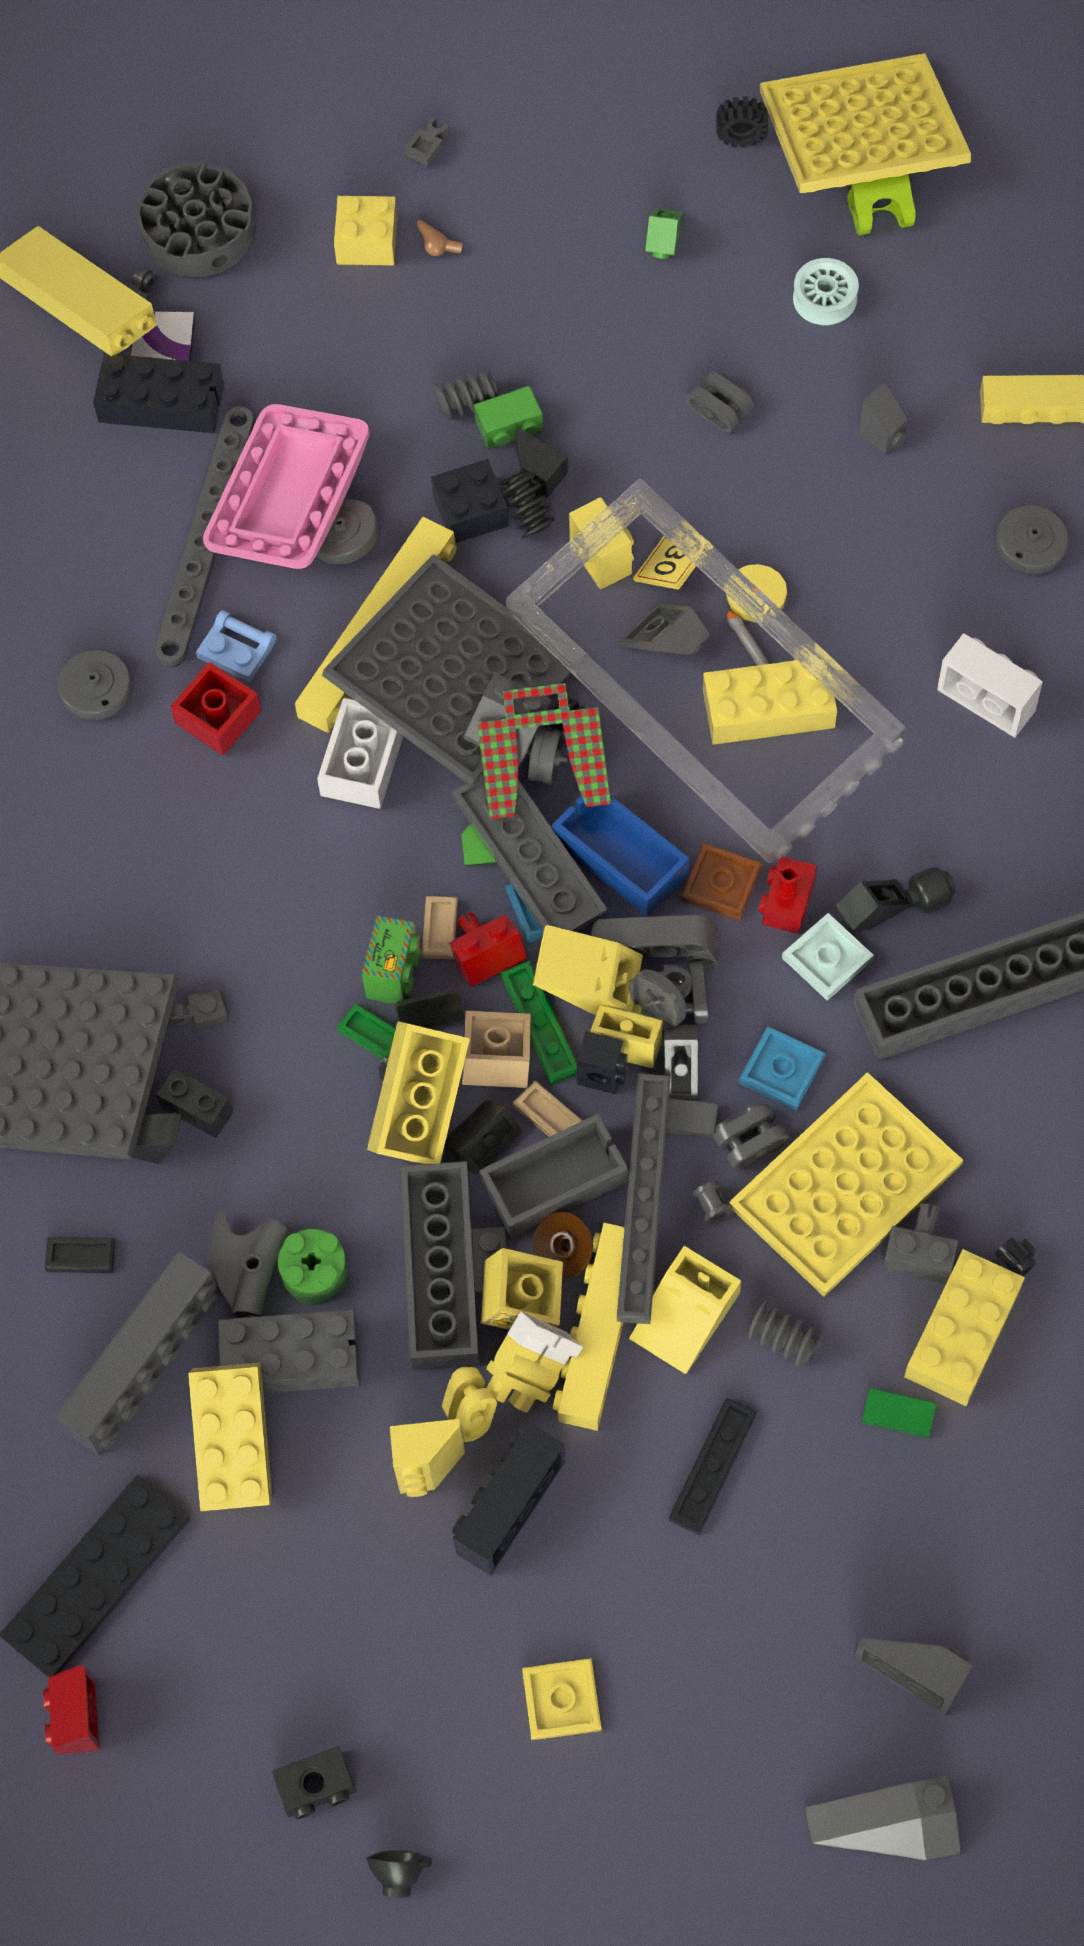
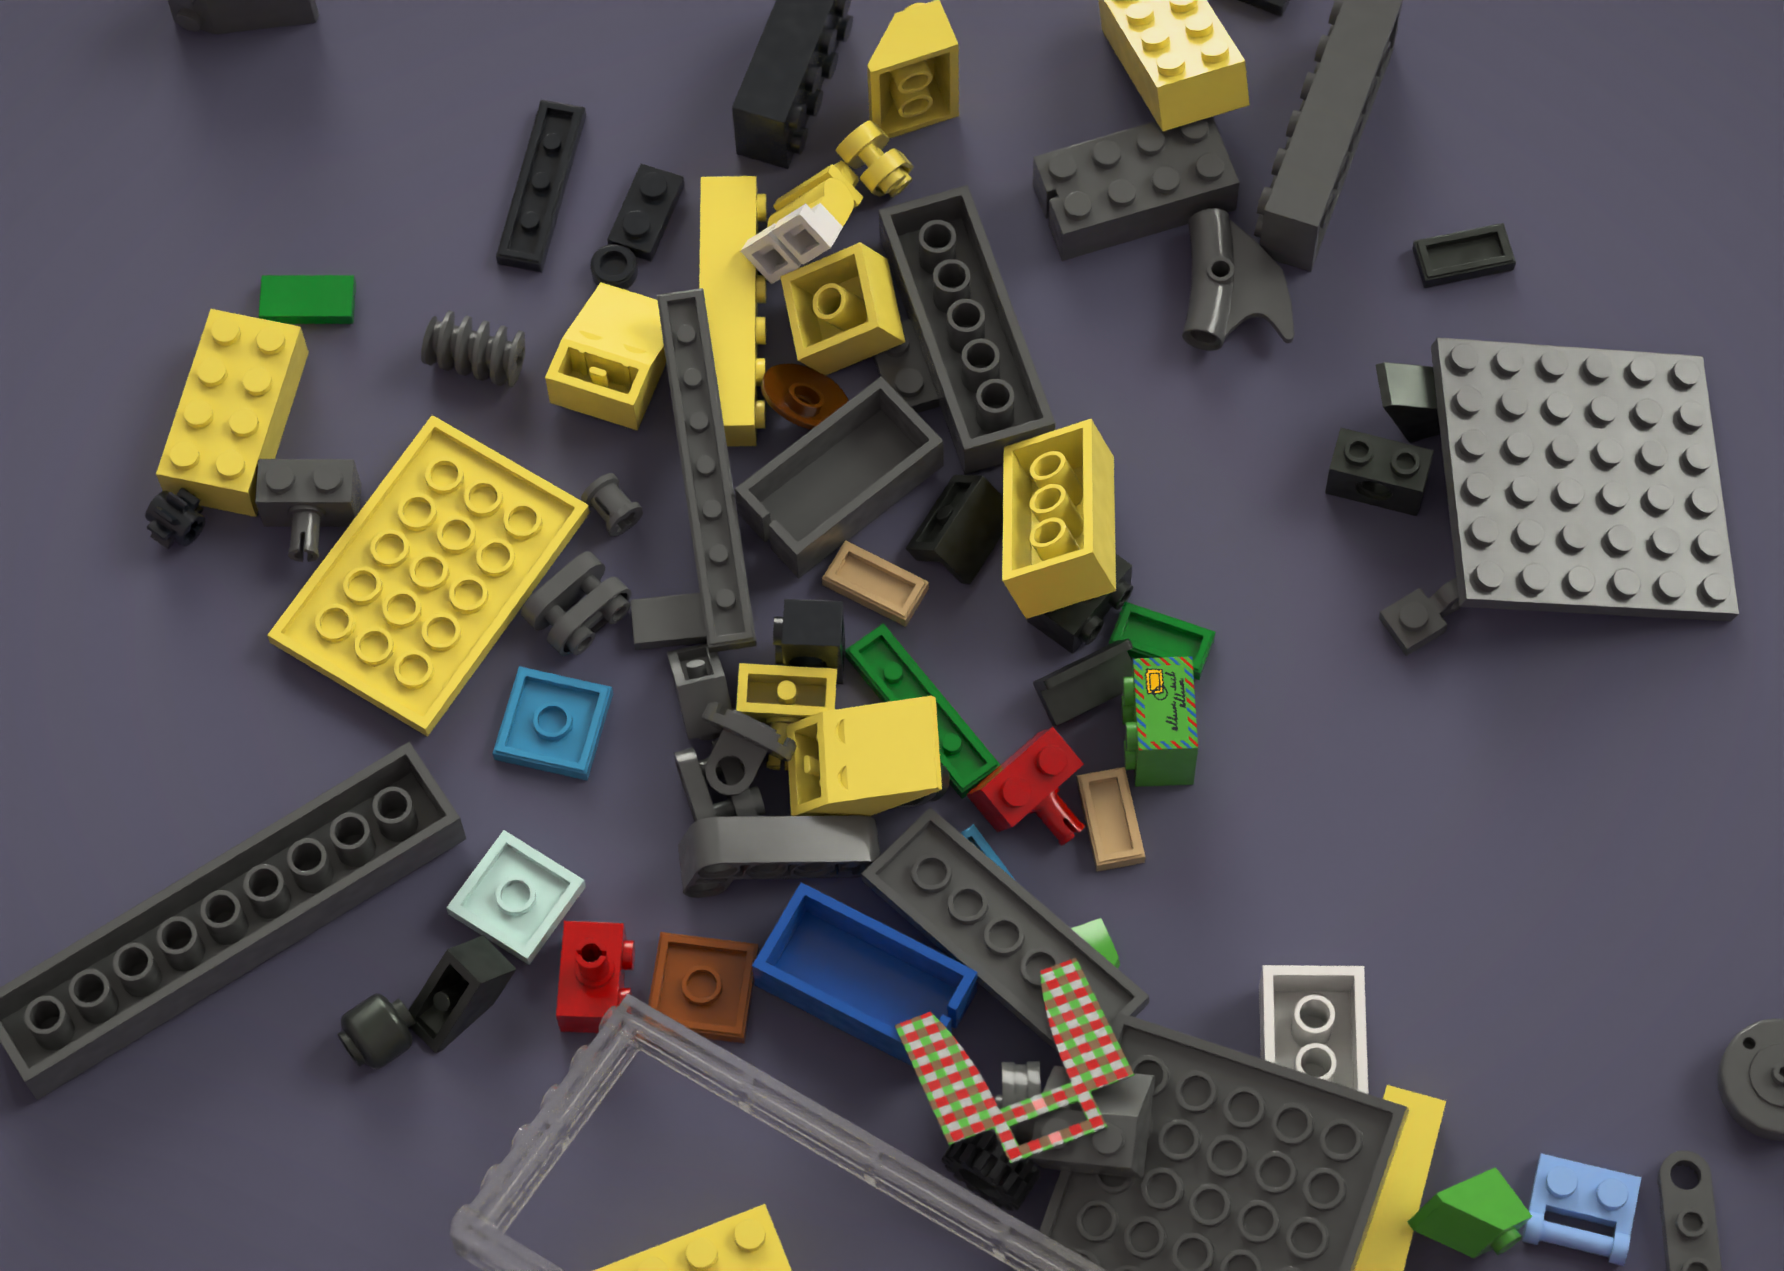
camera: 165 degrees right, 0 degrees up
(216, 708) = (1569, 1070): red brick -> none
(300, 644) = (1474, 1215): none -> bright green slope
(310, 1248) = (1139, 293): bright green brick -> none
(497, 1049) = (972, 640): tan slope -> none
(641, 1425) = (646, 211): none -> black plate
(674, 1386) = (614, 266): none -> black tile

